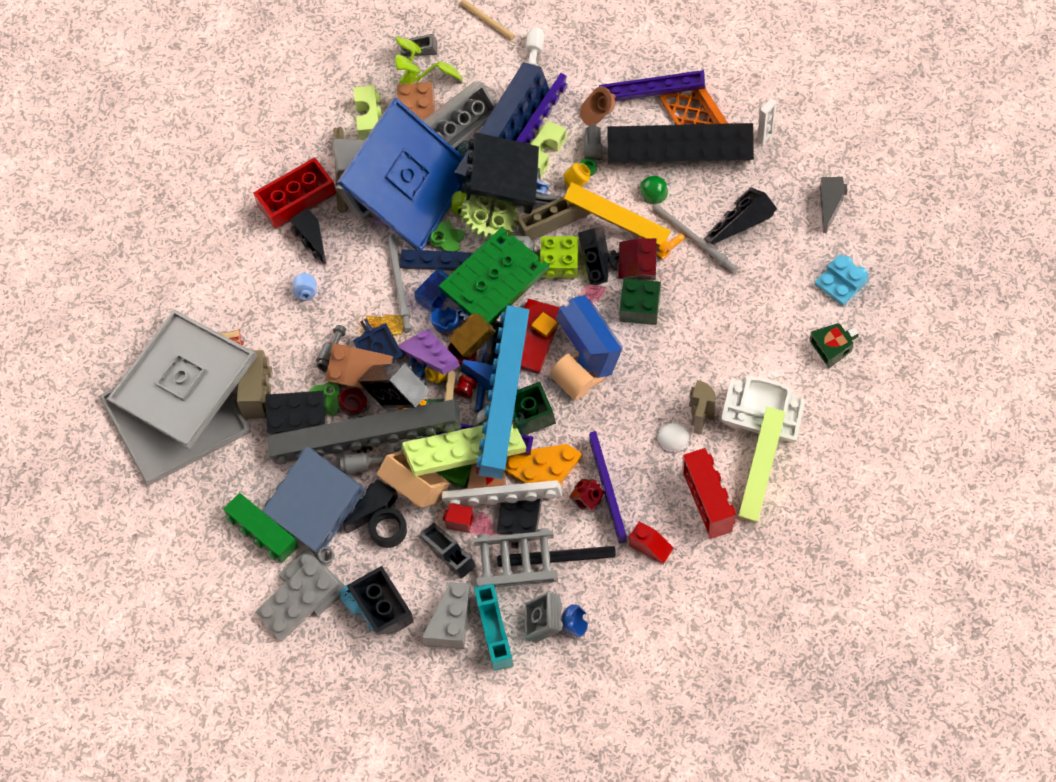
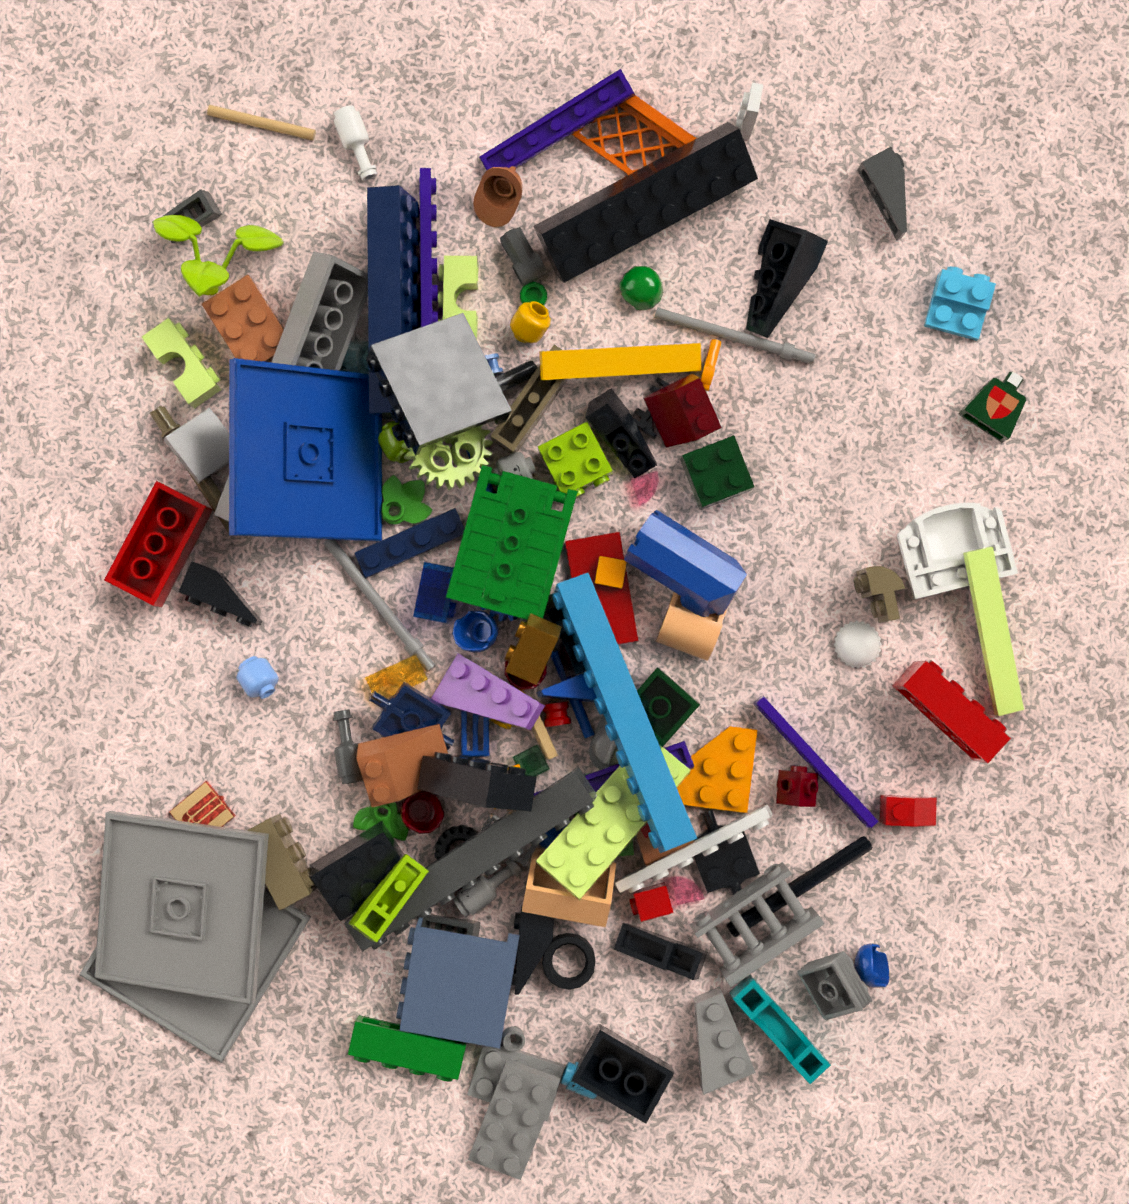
camera: 30 degrees left, 25 degrees up
(302, 425) = (388, 898): none -> lime slope

